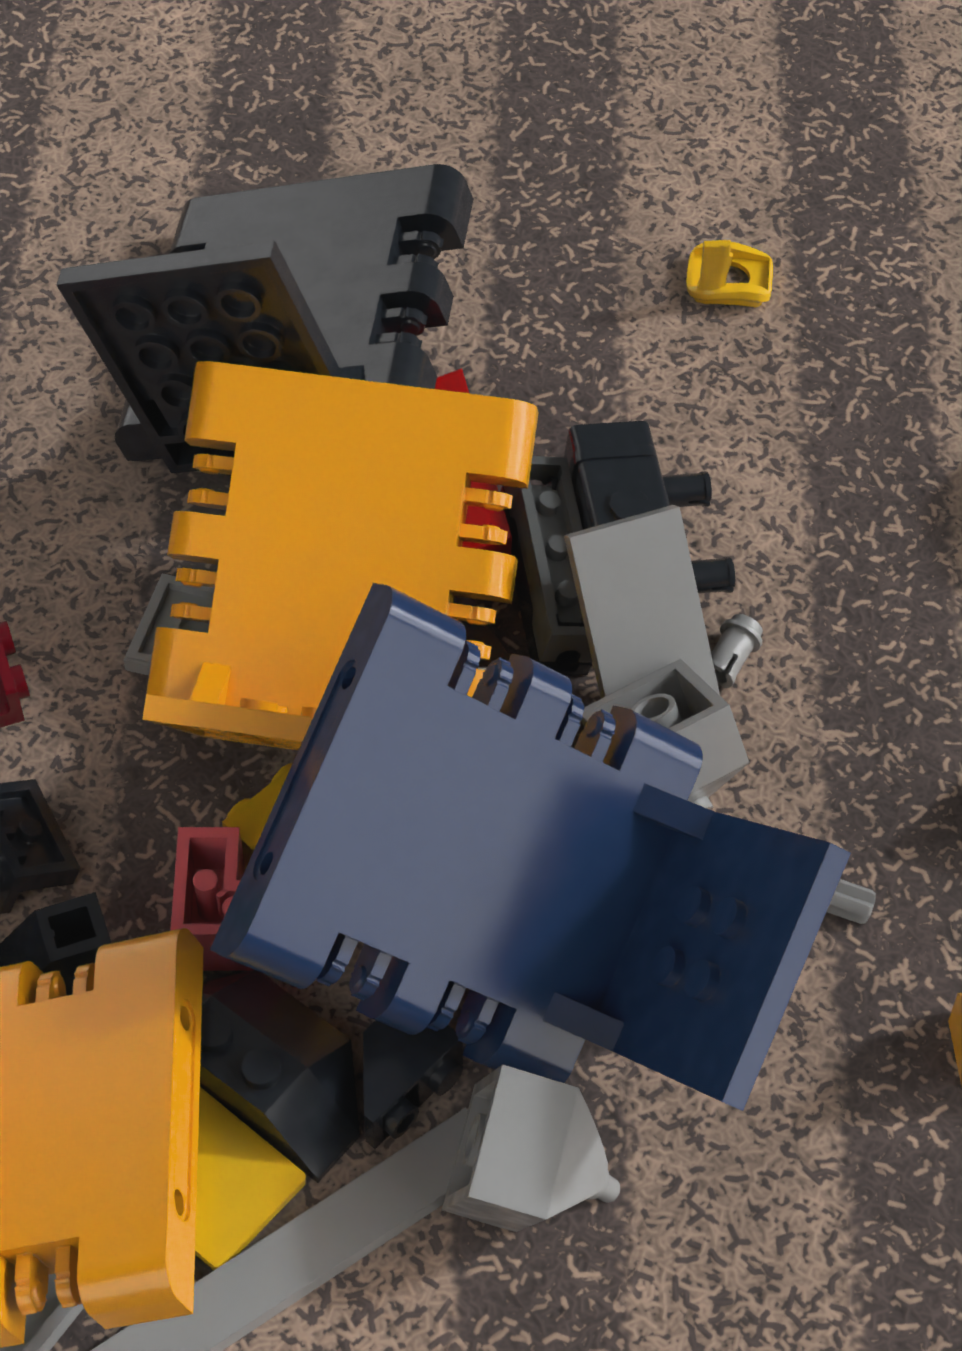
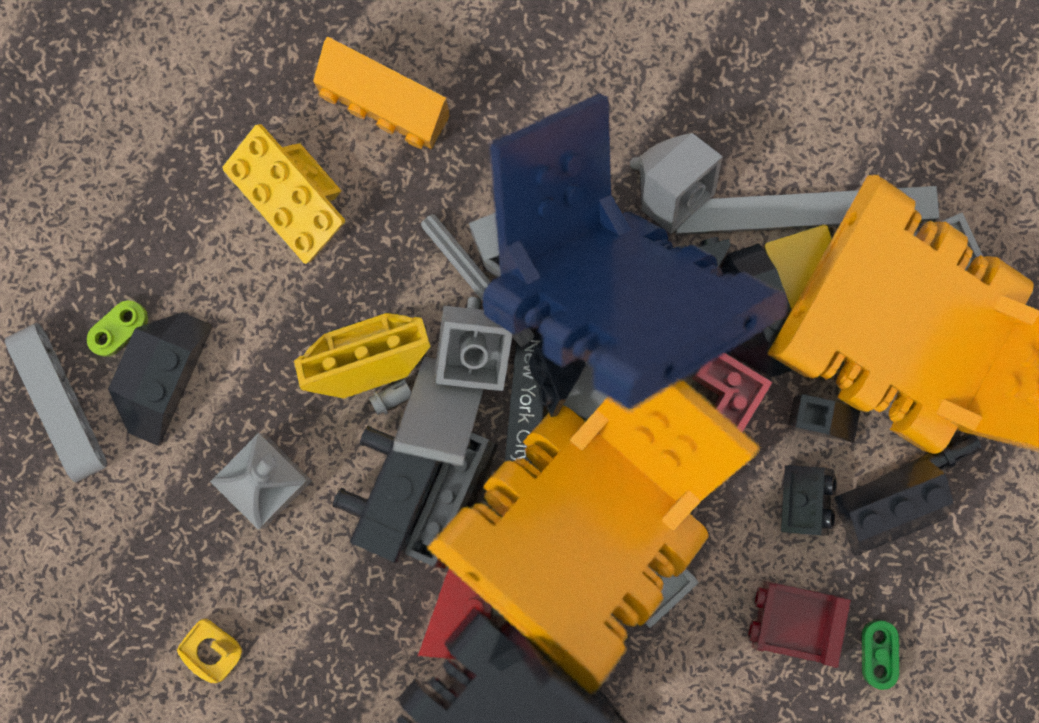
camera: 145 degrees left, 30 degrees up
(820, 665) = (363, 356): none -> yellow wedge
(821, 460) = (261, 481): none -> light grey piece

